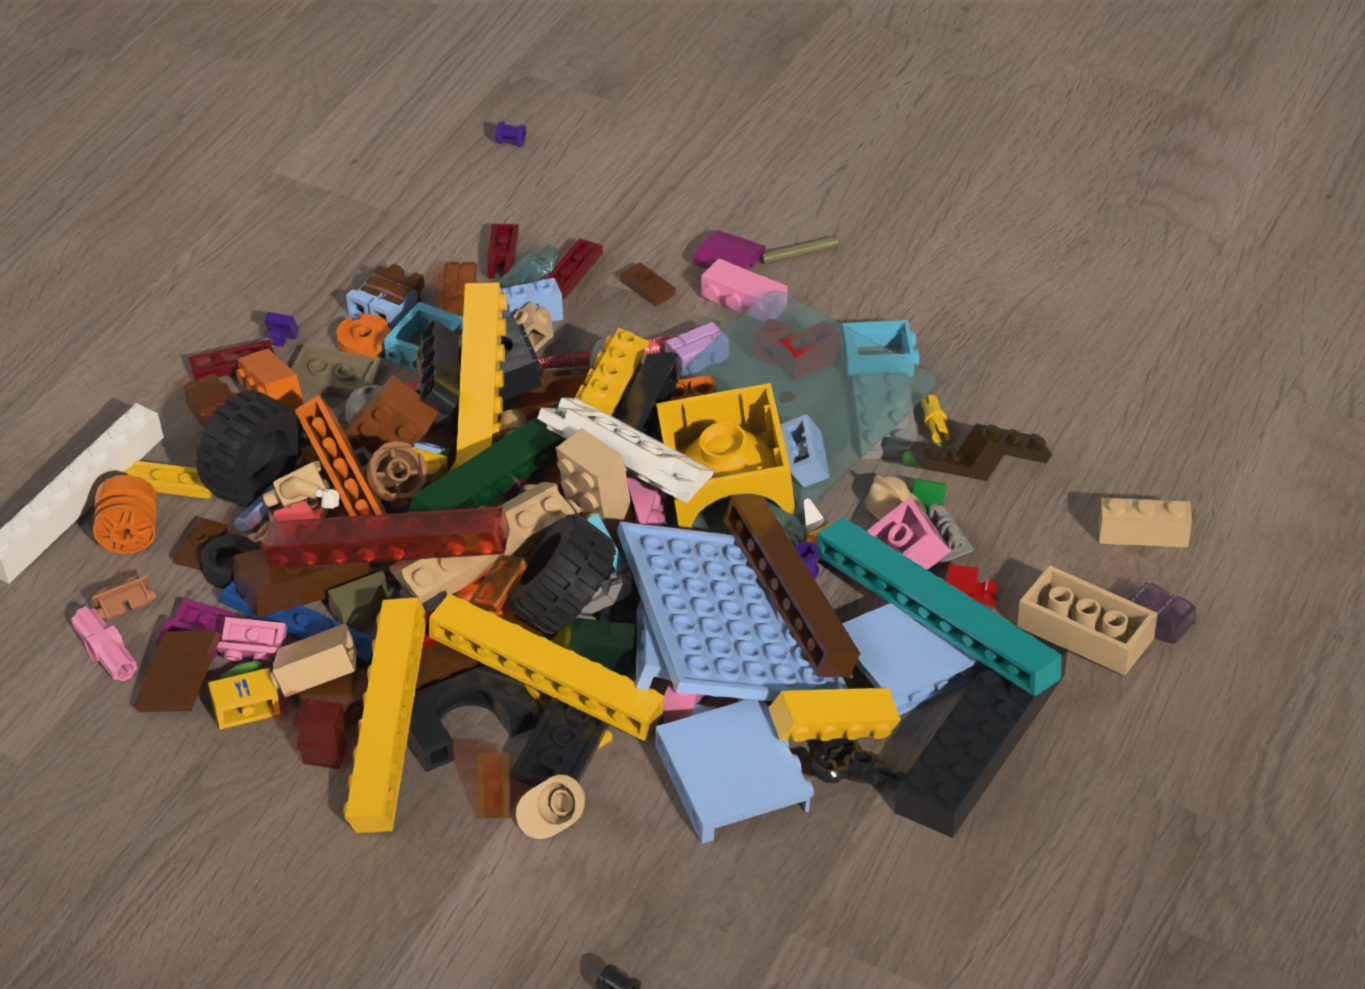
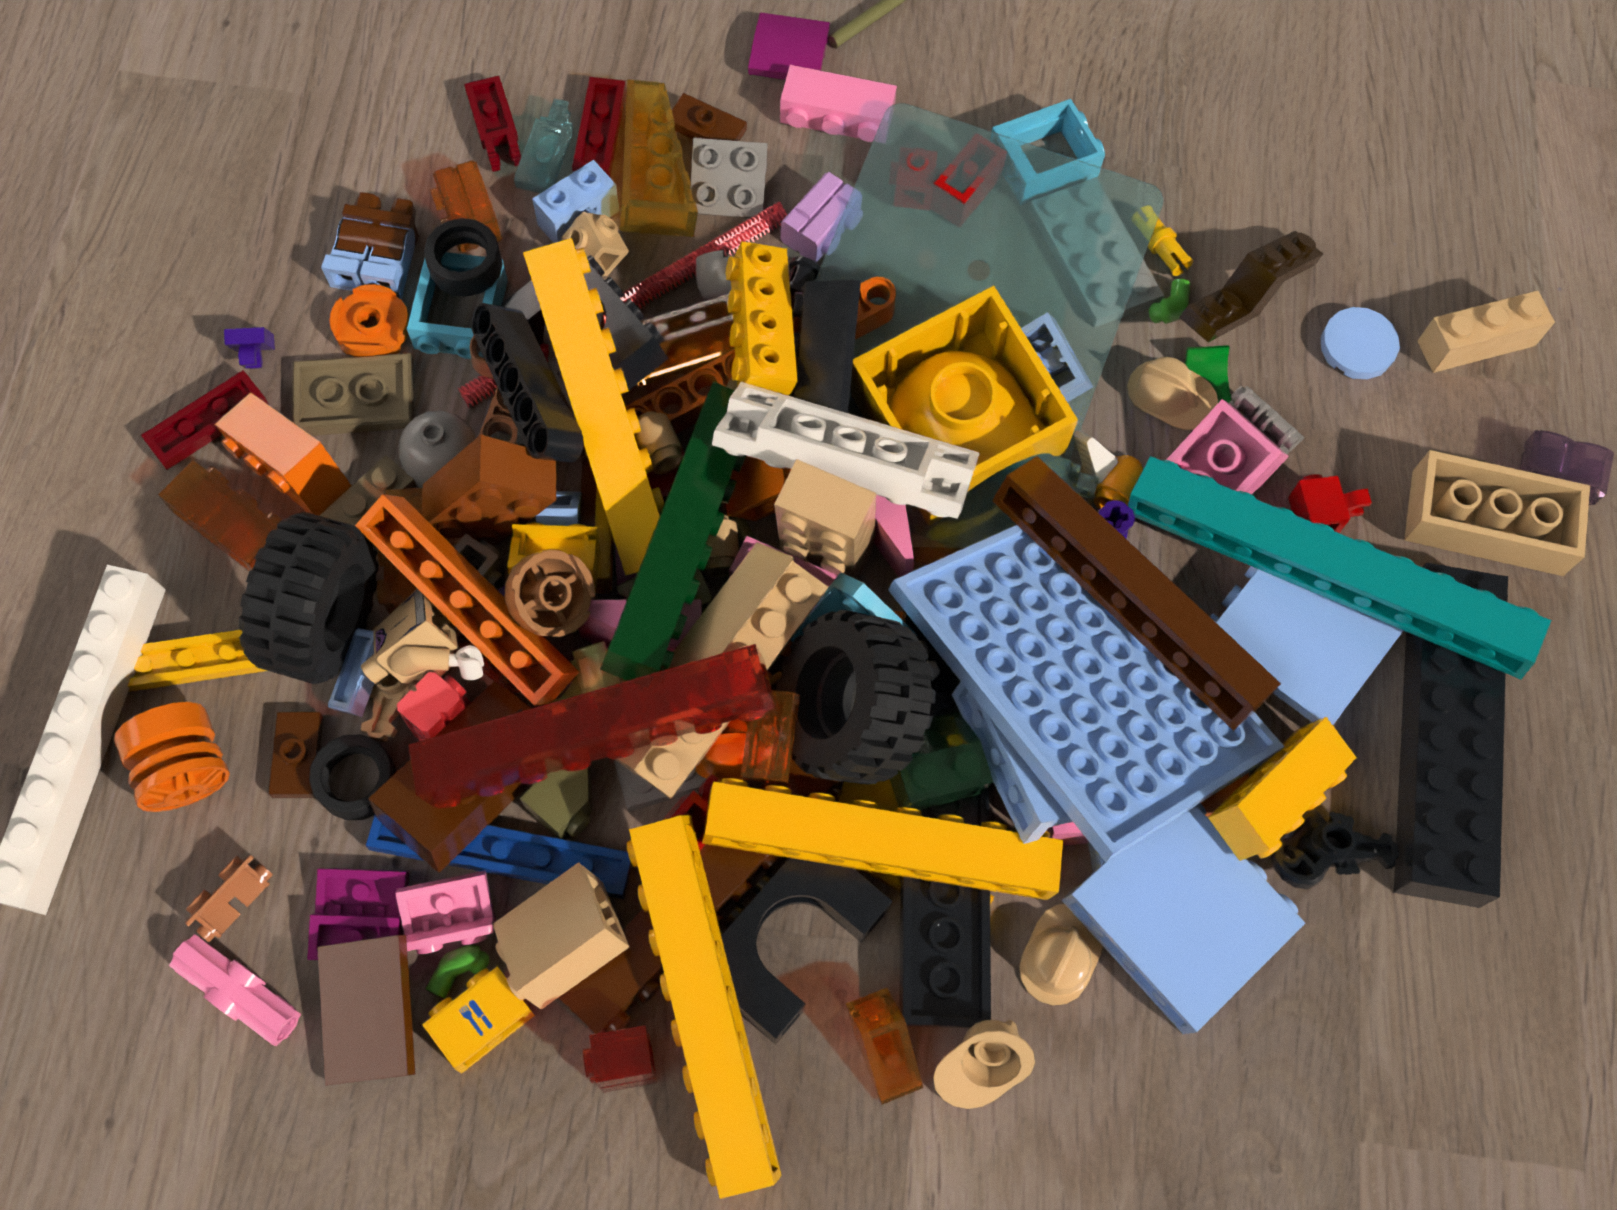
camera: 25 degrees left, 25 degrees up
(435, 294) = (460, 232): none -> black tyre
(591, 296) = (654, 178): none -> clear yellow wedge
(638, 778) = (1059, 957): none -> tan piece
(645, 312) = (728, 177): none -> light grey hinge
(1050, 511) = (1360, 343): none -> light blue tile

